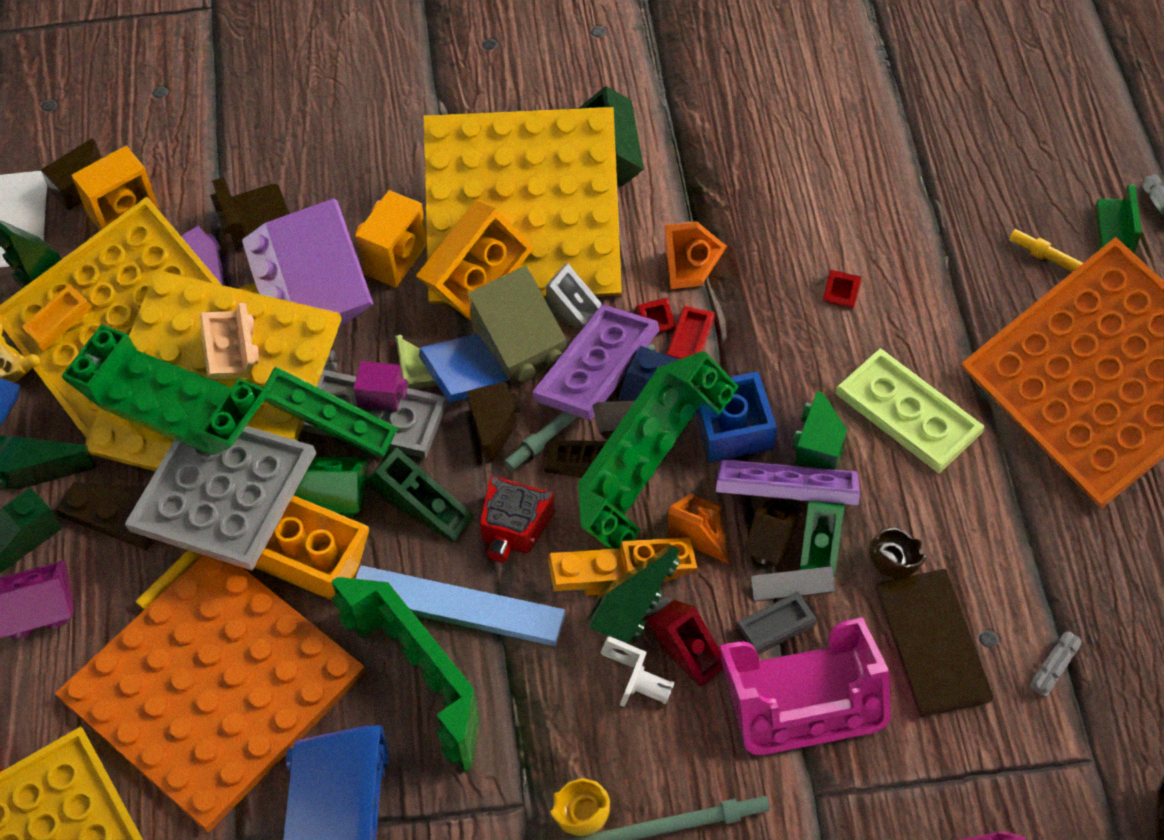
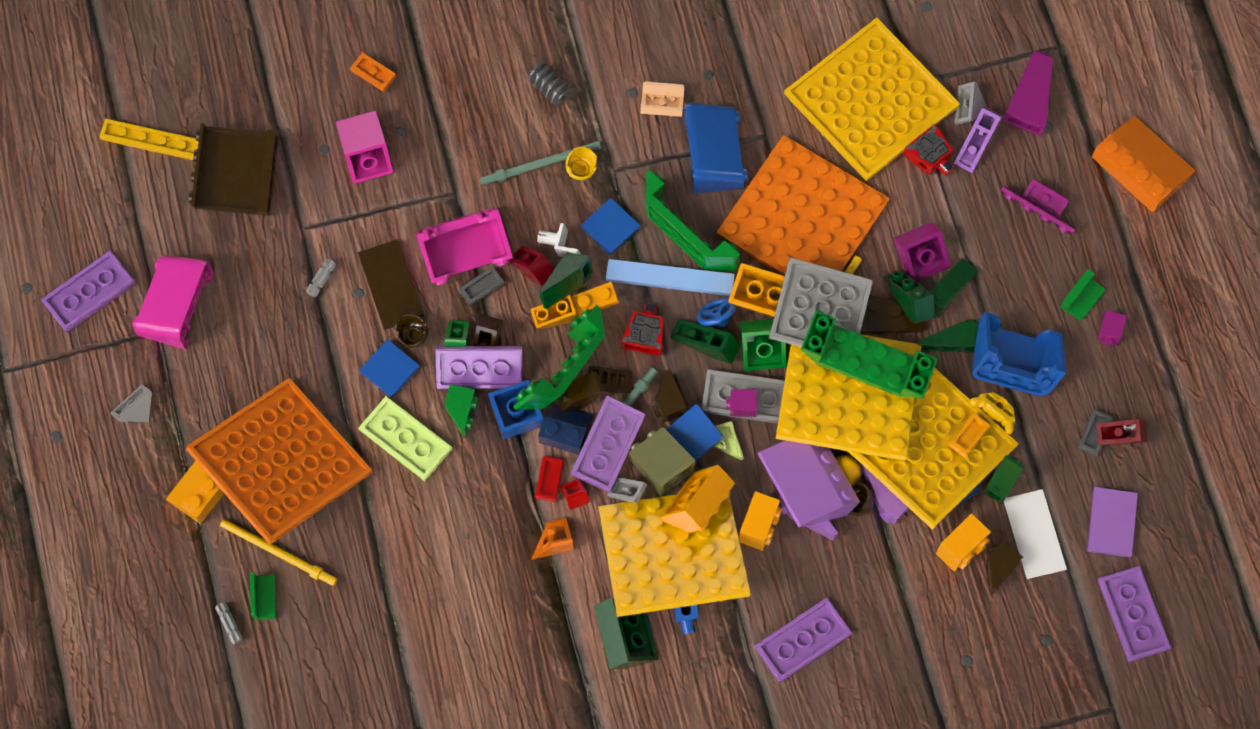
camera: 170 degrees right, 15 degrees up
(74, 521) = (911, 296): none -> dark green slope
(228, 343) = (841, 399): light nougat bracket -> none
(235, 262) = (865, 497): none -> dark brown hair
(247, 210) = (865, 545): dark brown bracket -> none
(329, 413) = (769, 373): green tile -> none
(365, 125) = (803, 640): none -> medium lavender tile
(390, 518) = (718, 316): none -> blue piece
(544, 700) = (610, 226): none -> blue tile
(702, 523) = (533, 339): orange slope -> none
(787, 583) = (473, 312): light grey sticker -> none
(842, 288) = (450, 529): red slope -> none
(934, 509) = (389, 368): none -> blue tile

